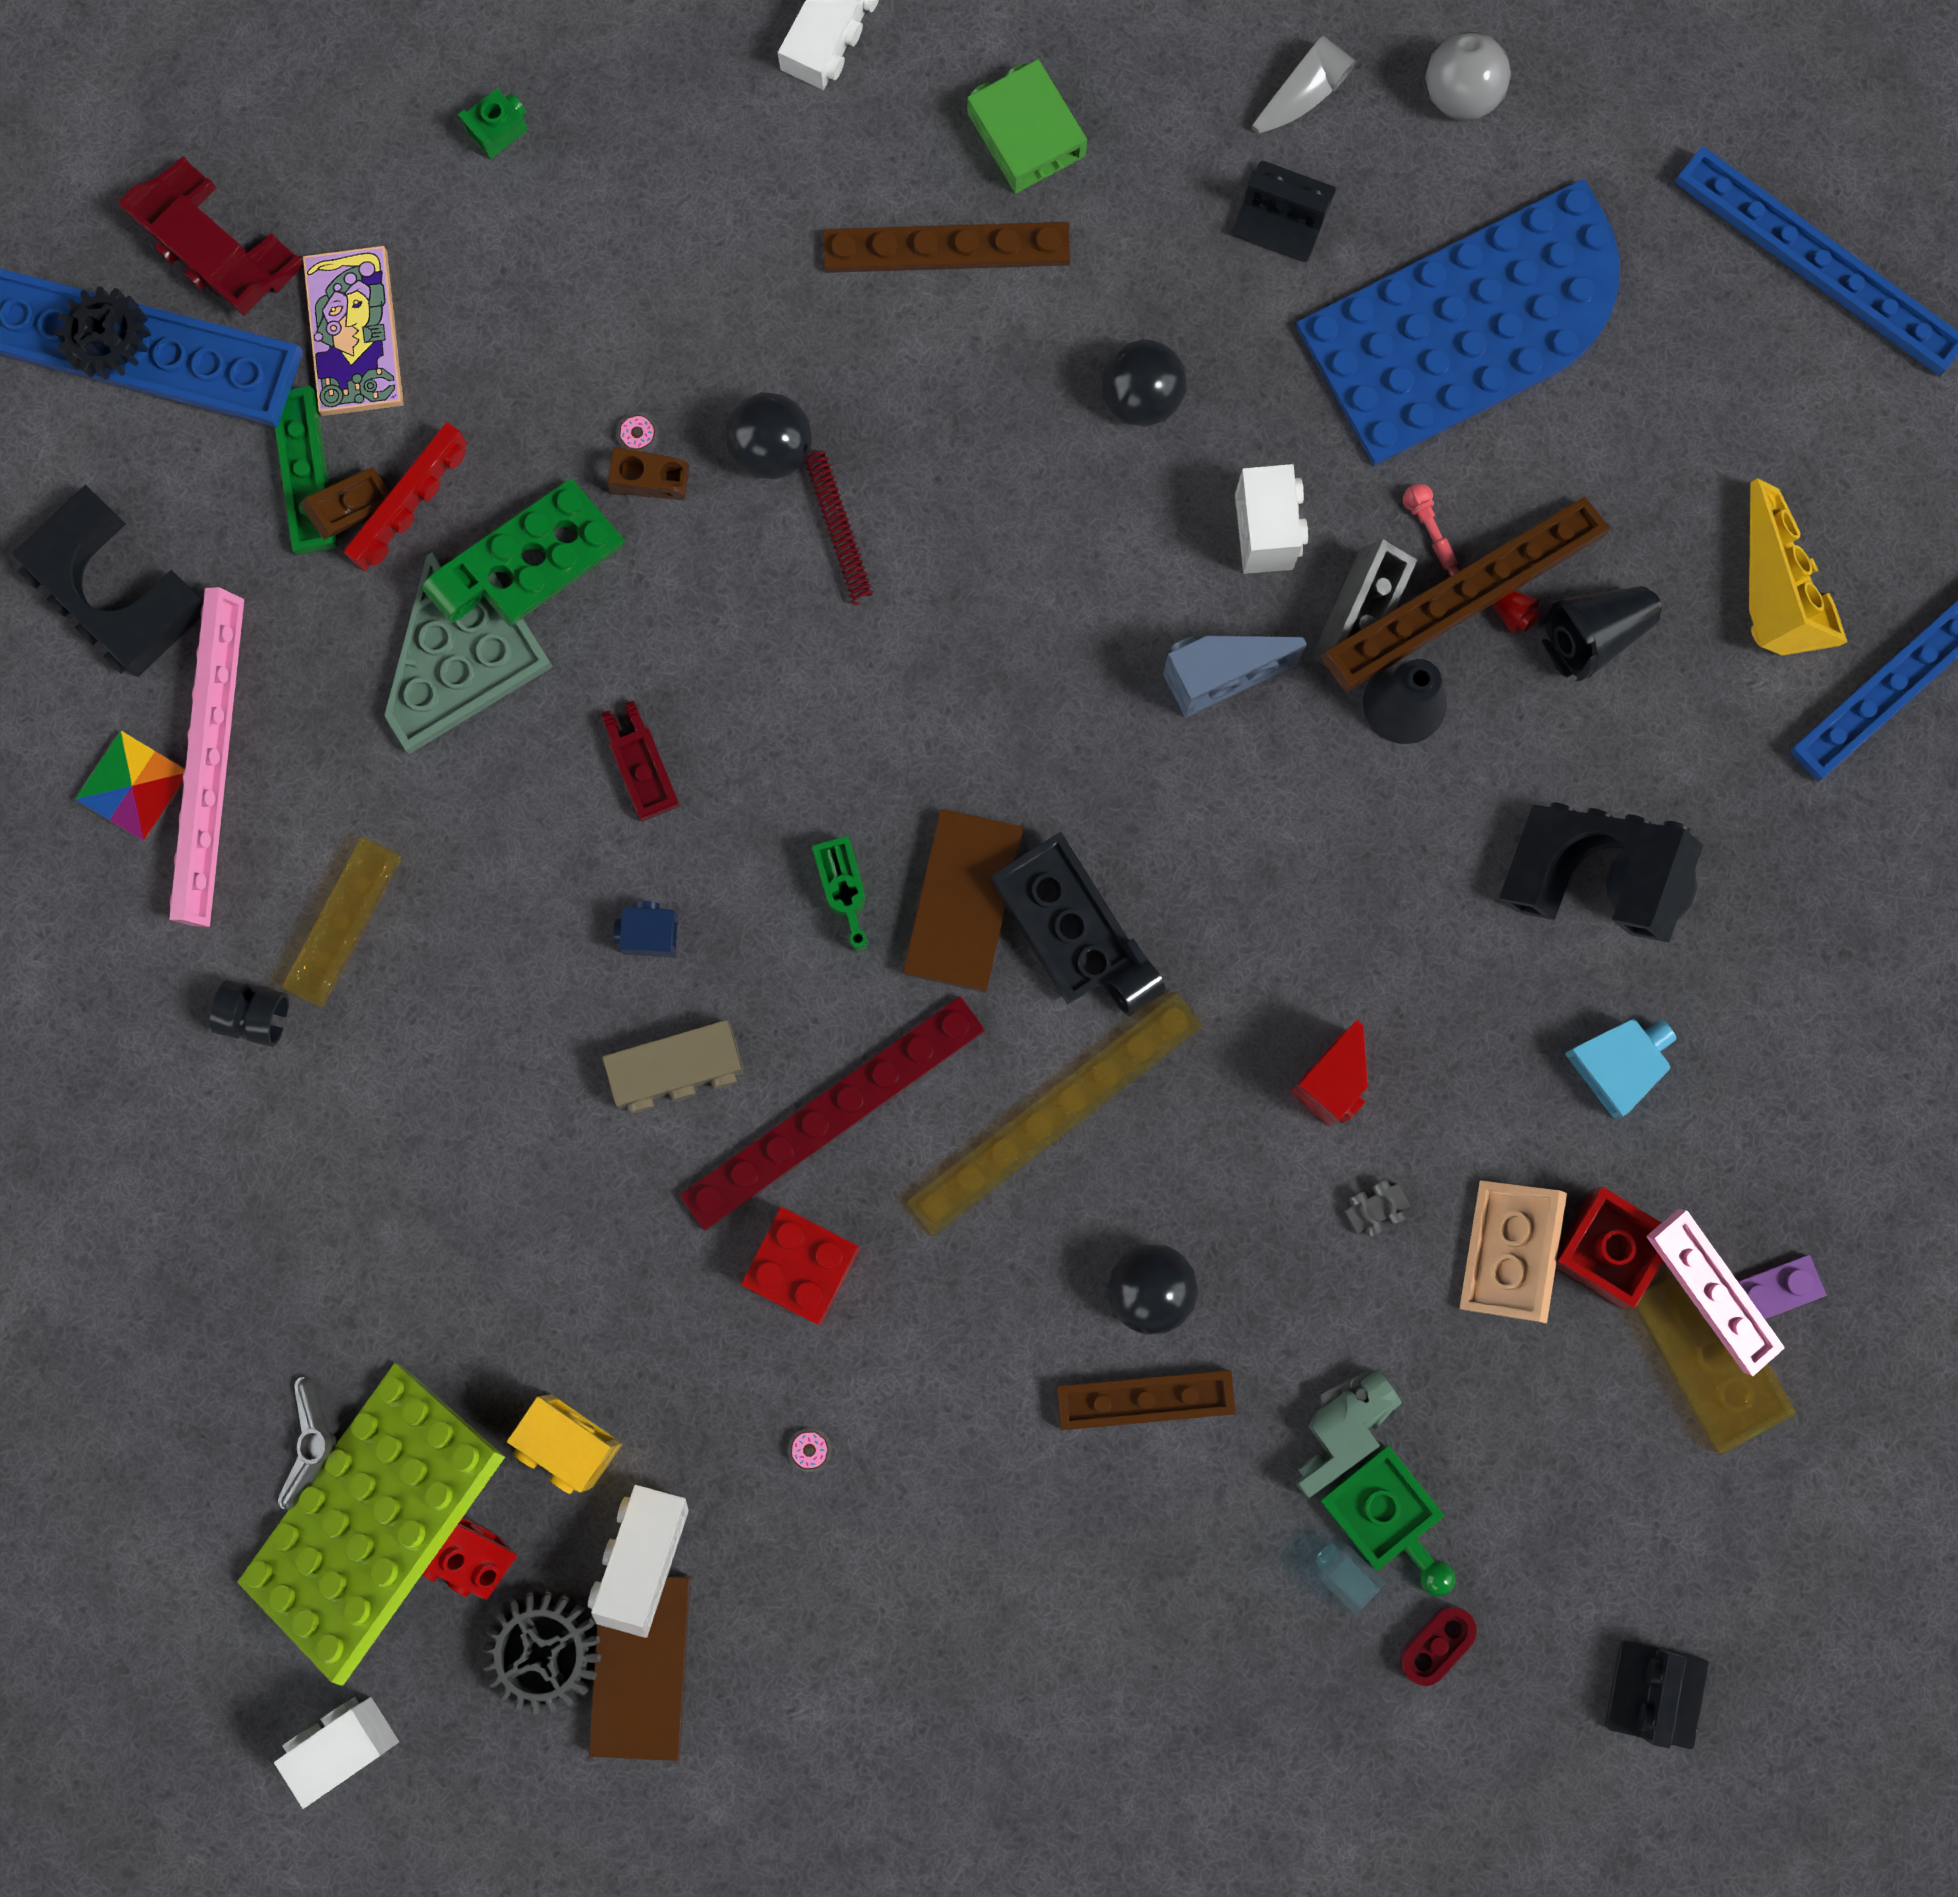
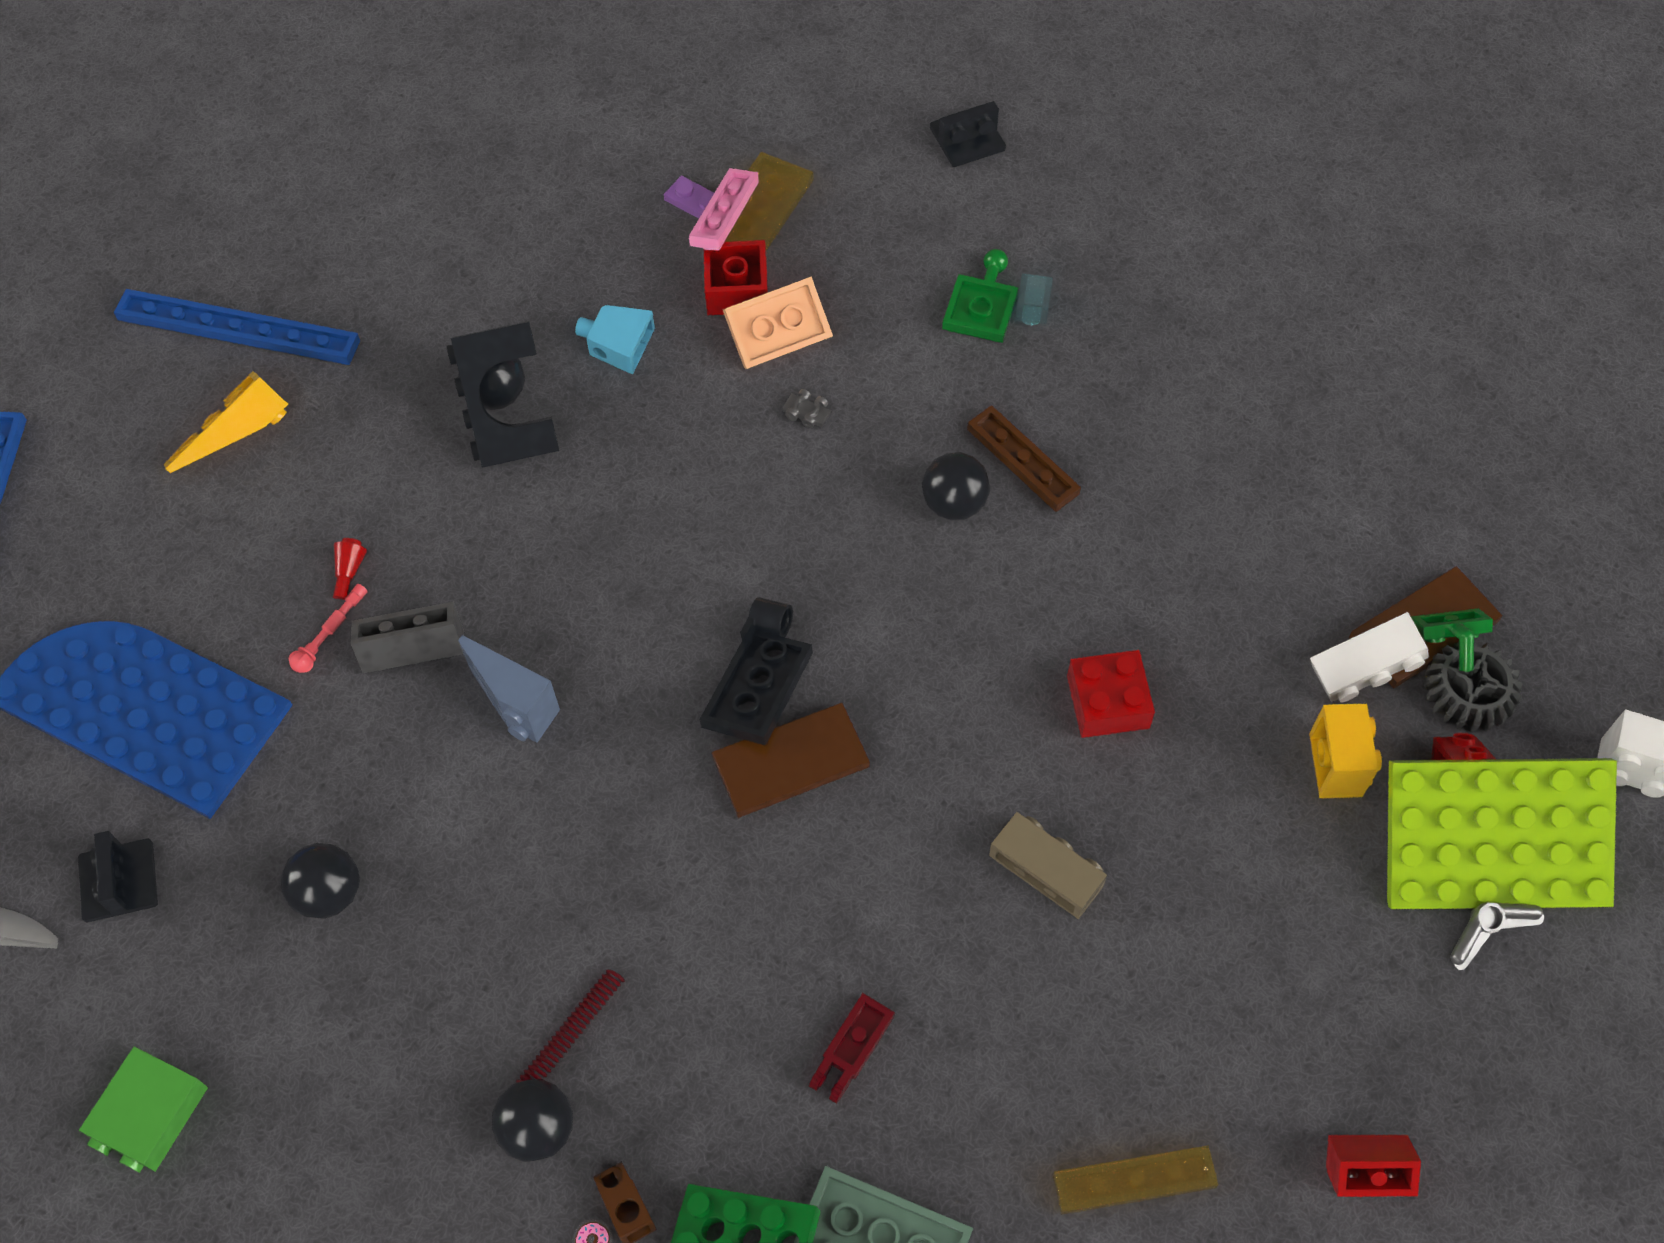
camera: 125 degrees left, 20 degrees down
(192, 1134) = (1373, 1165): none -> red brick
(241, 1011) = (1255, 1193): black wheel -> none
(607, 1682) = (1460, 624): none -> green plate
(646, 930) = (970, 949): dark blue brick -> none
(809, 1450) = (1214, 620): tile -> none
(832, 1113) = (997, 748): dark red plate -> none
(833, 883) = (830, 851): green piece -> none
(946, 247) = (287, 1109): reddish brown plate -> none
(1054, 1114) = (892, 617): clear yellow plate -> none
(1269, 518) = (379, 729): white brick -> none
(1337, 1078) = (741, 466): red slope -> none
(1343, 1427) = (954, 347): sand green plate -> none
(1406, 701) = (455, 575): black cone -> none
(1441, 1649) = (1032, 240): dark red plate -> none
(1464, 594) = (361, 578): reddish brown plate -> none
(1596, 627) = (335, 499): black cone -> none

